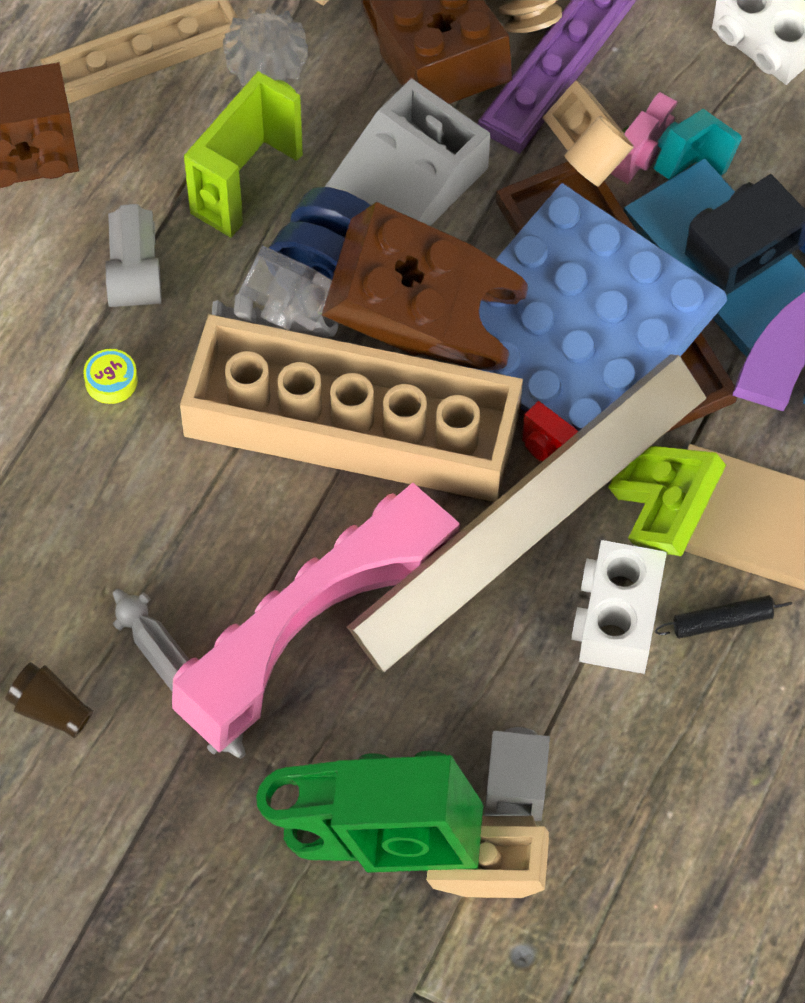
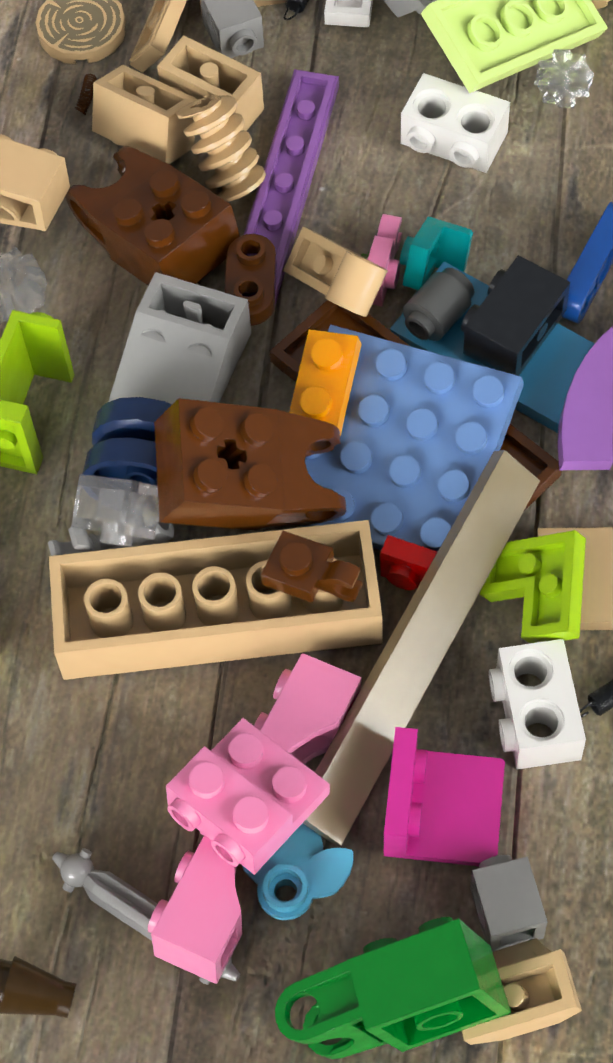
camera: 15 degrees left, 0 degrees up
(305, 590) = (245, 796): none -> bright pink plate
(337, 672) = (304, 867): none -> medium azure plate
(444, 401) = (305, 566): none -> reddish brown plate
(490, 664) = (442, 804): none -> dark pink bracket
(508, 112) = (252, 274): none -> reddish brown plate
(536, 231) = (326, 376): none -> light orange plate
(677, 197) = (438, 304): none -> dark grey brick

